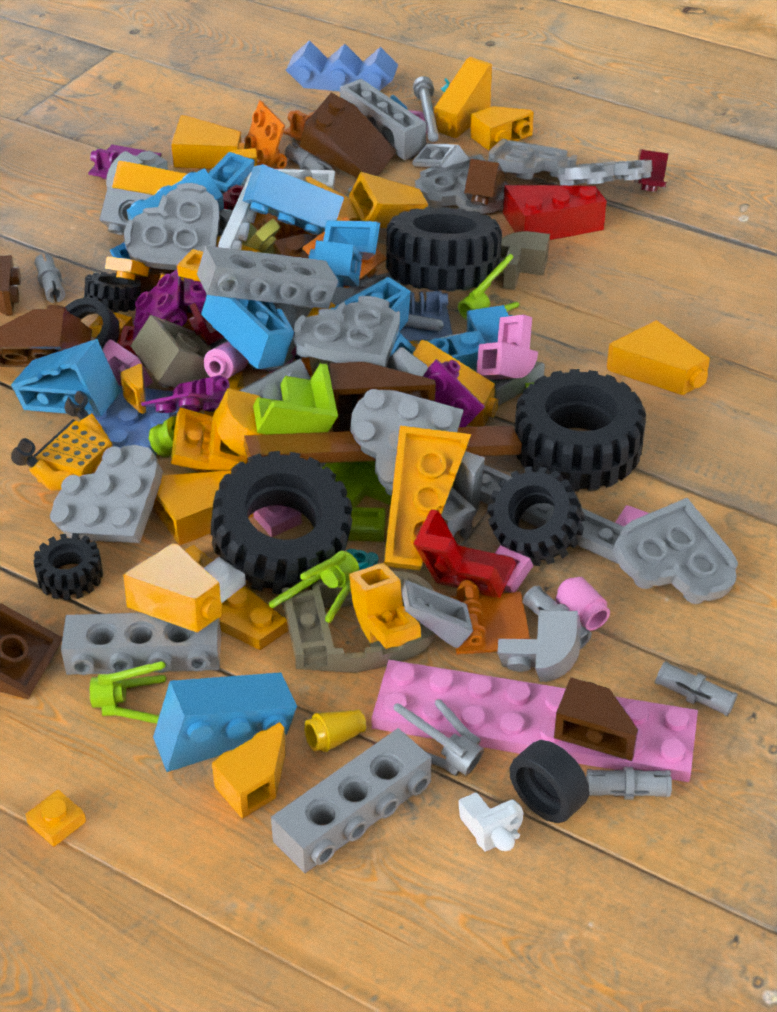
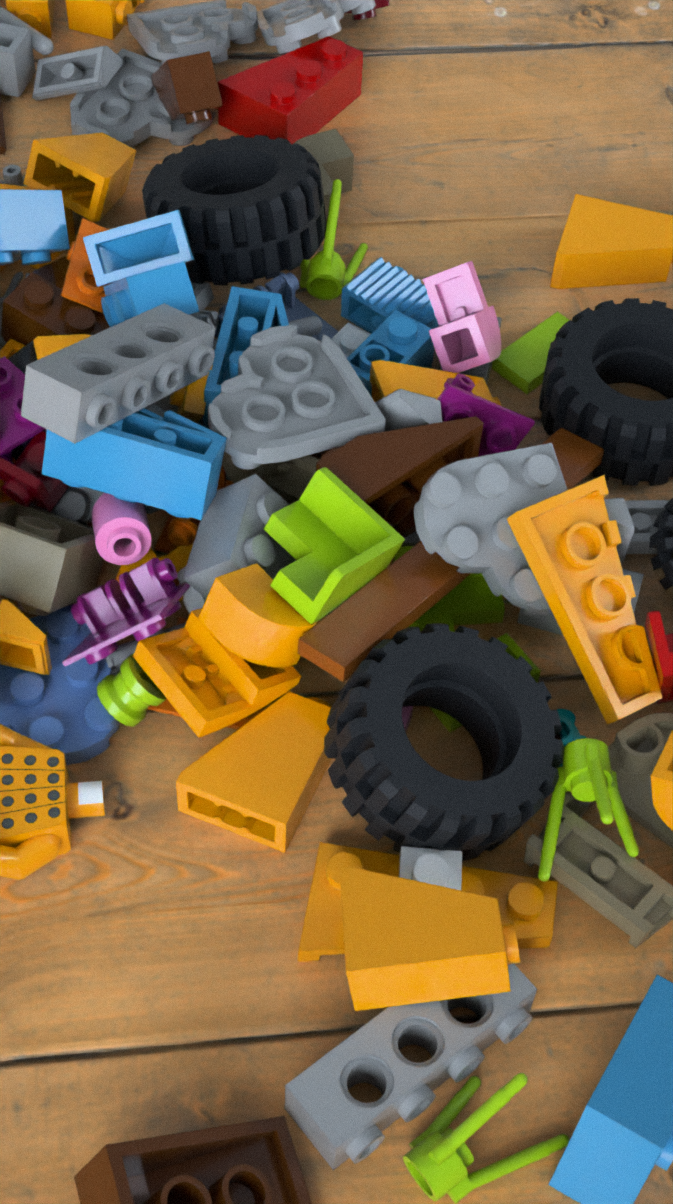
camera: 40 degrees left, 10 degrees up
(68, 580) = (178, 1028): black tyre -> none
(113, 500) = (150, 844): light grey plate -> none

